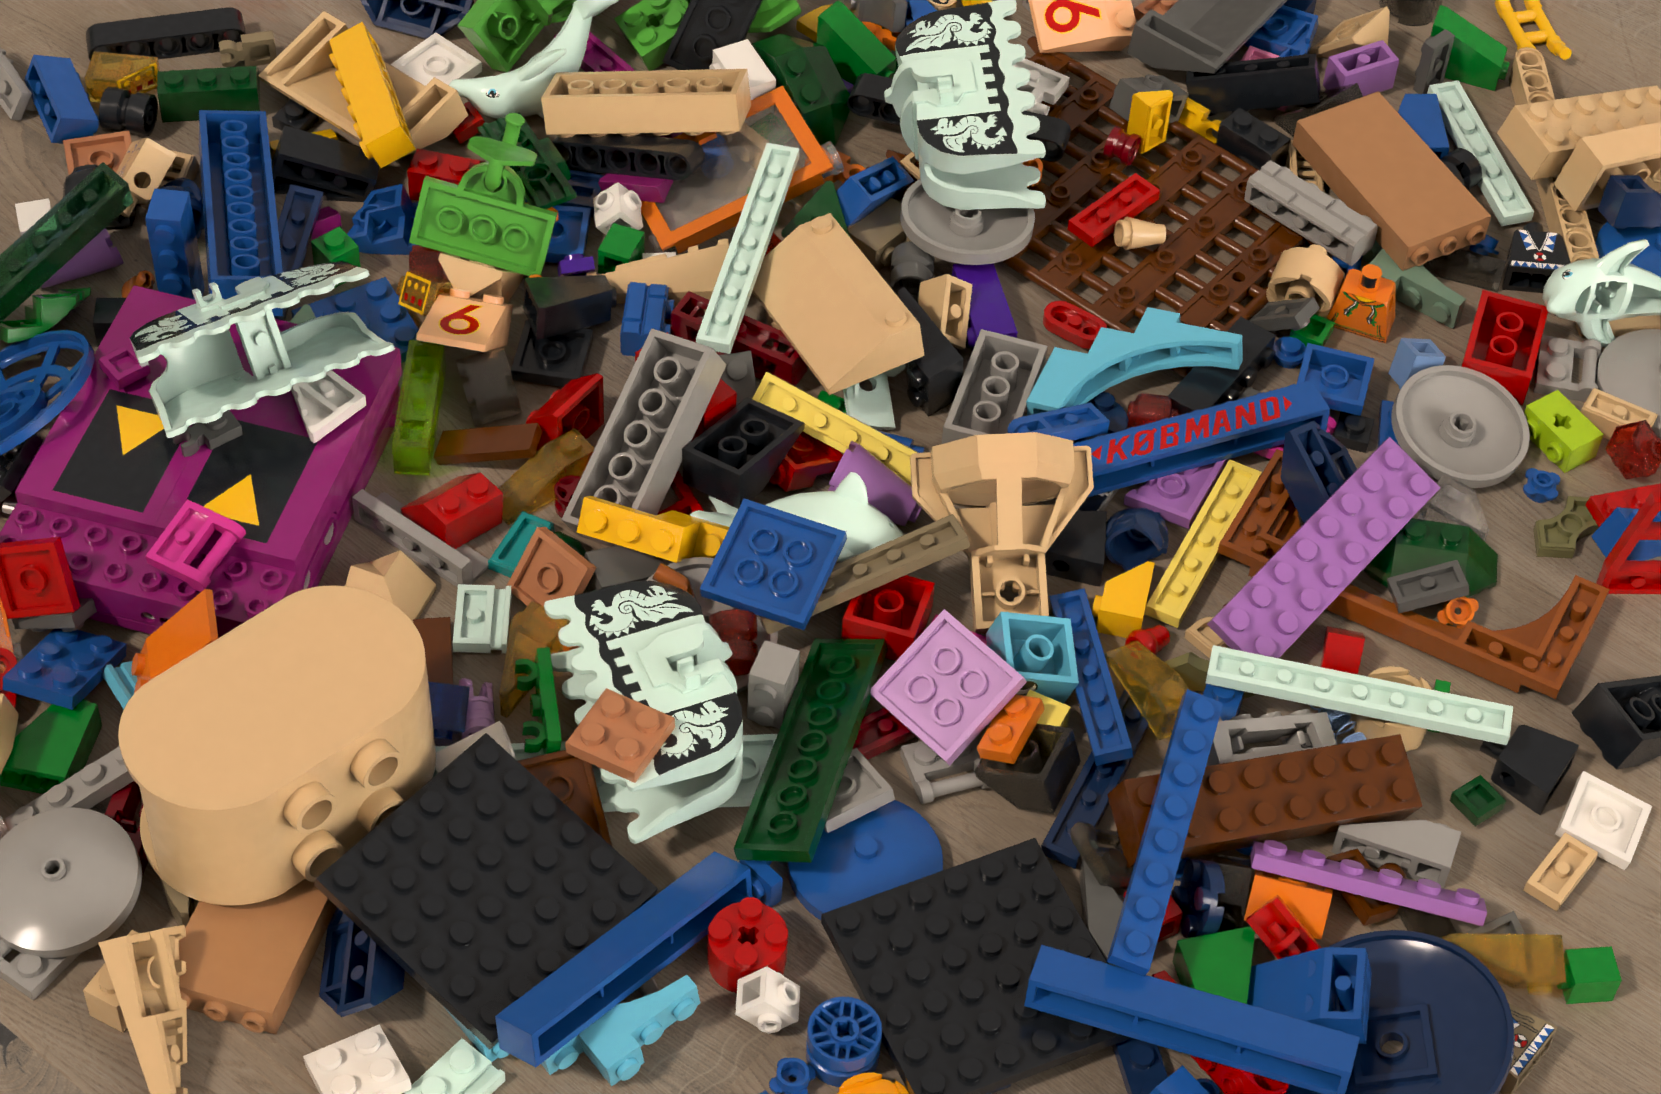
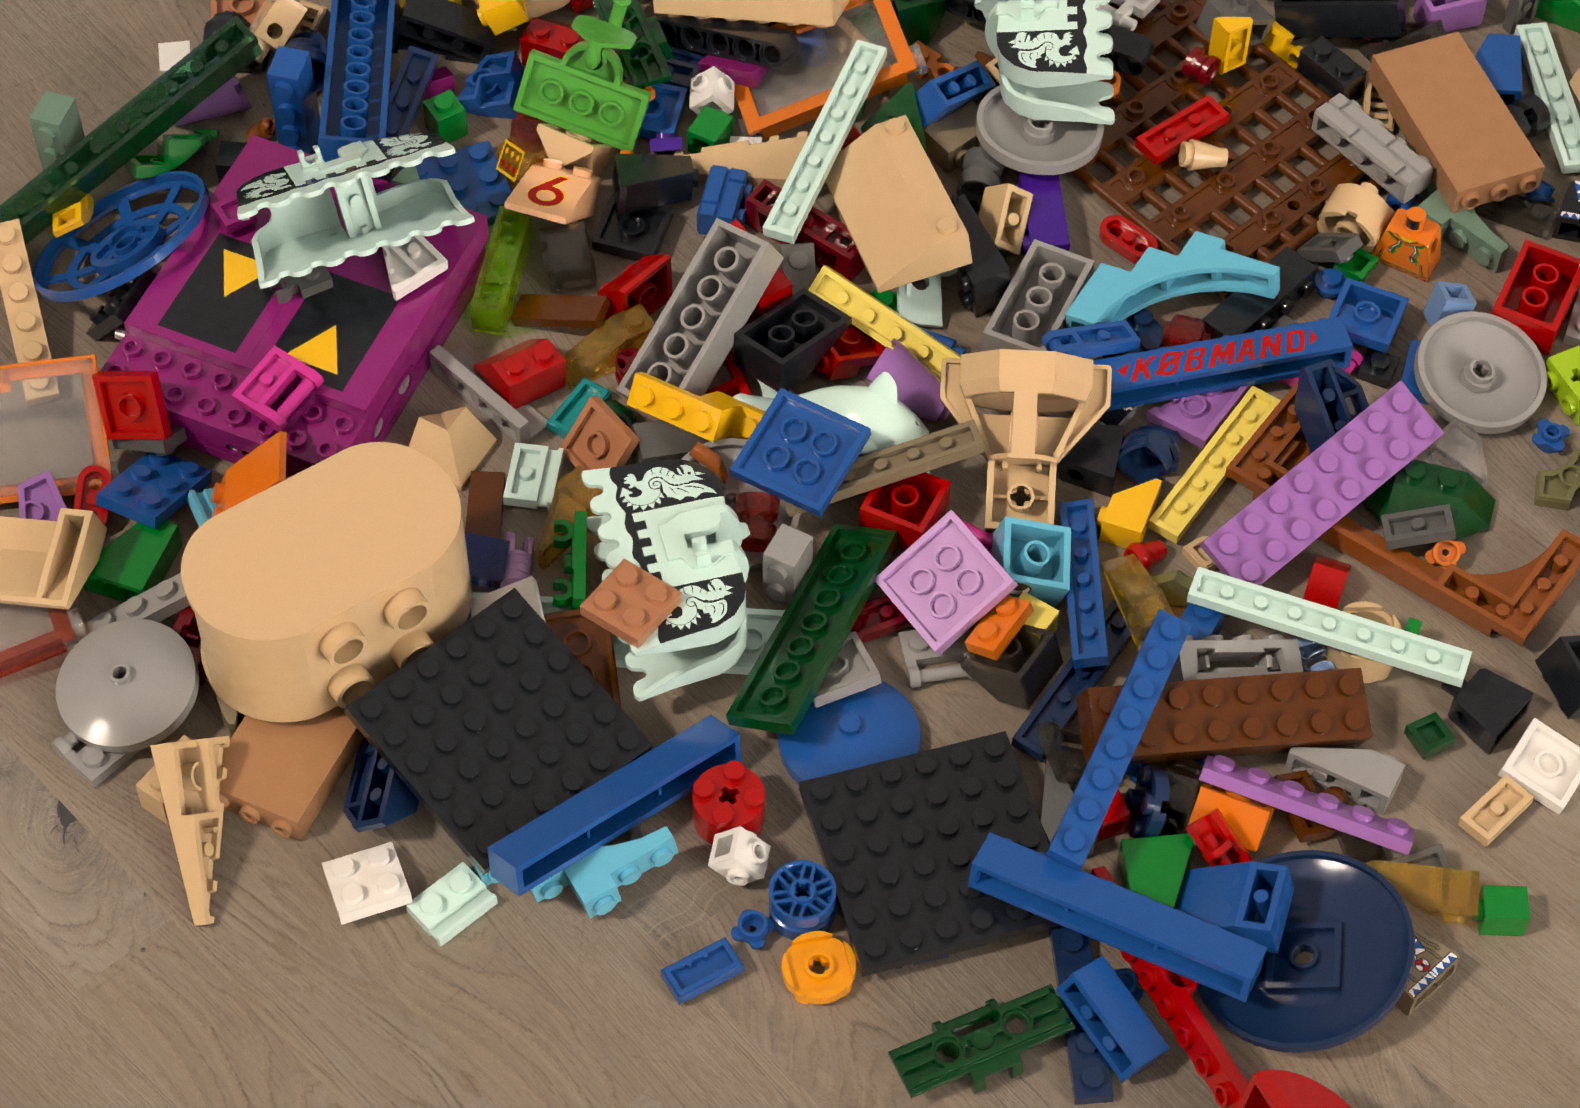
camera: 10 degrees right, 5 degrees up
(765, 882) = (753, 747): blue bracket -> none

